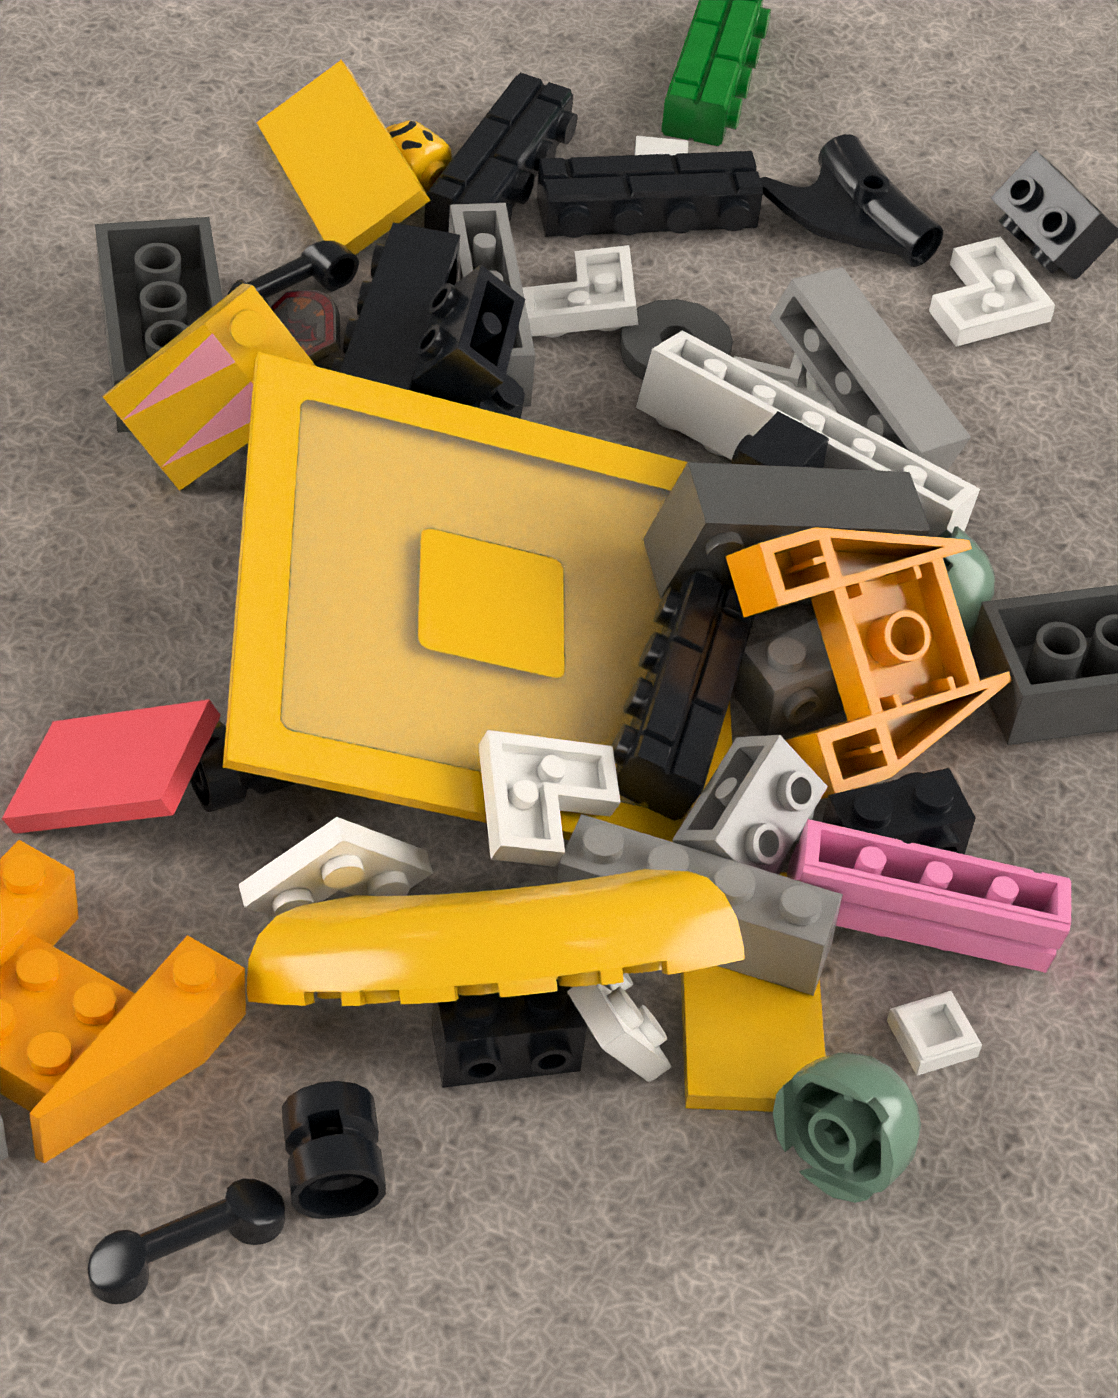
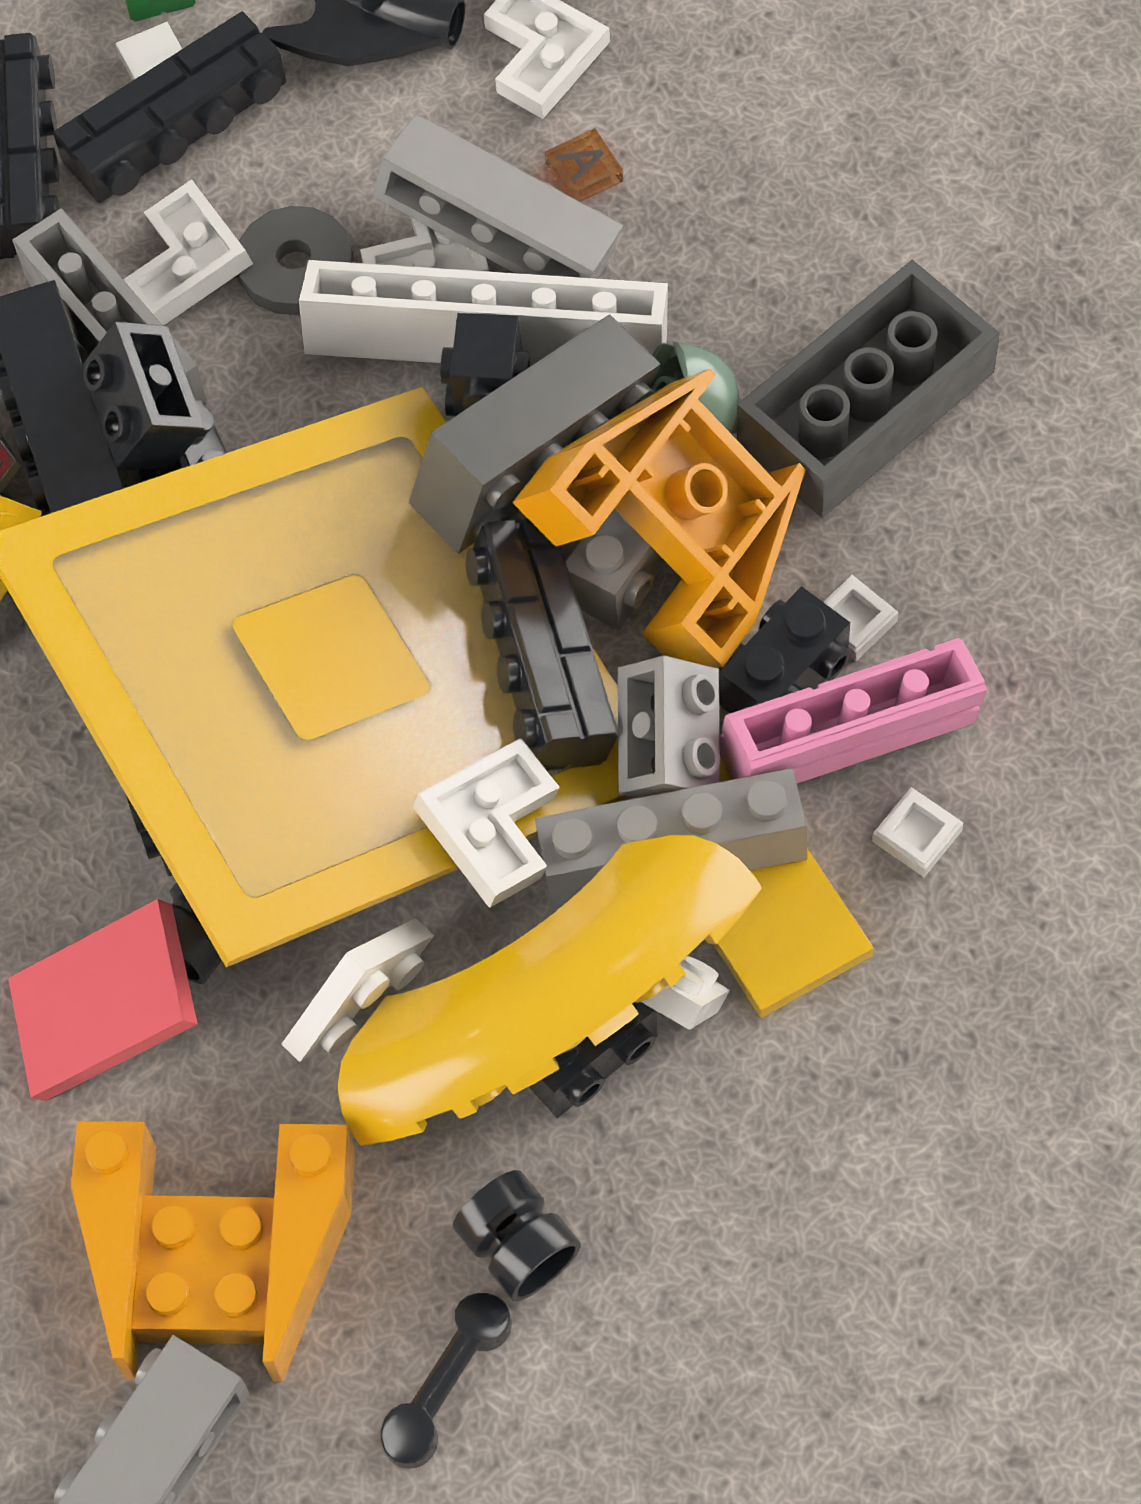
camera: 20 degrees left, 15 degrees up
(849, 1124) = (909, 963): sand green cylinder -> none
(970, 393) = (584, 166): none -> clear orange tile
(997, 833) = (866, 611): none -> white tile

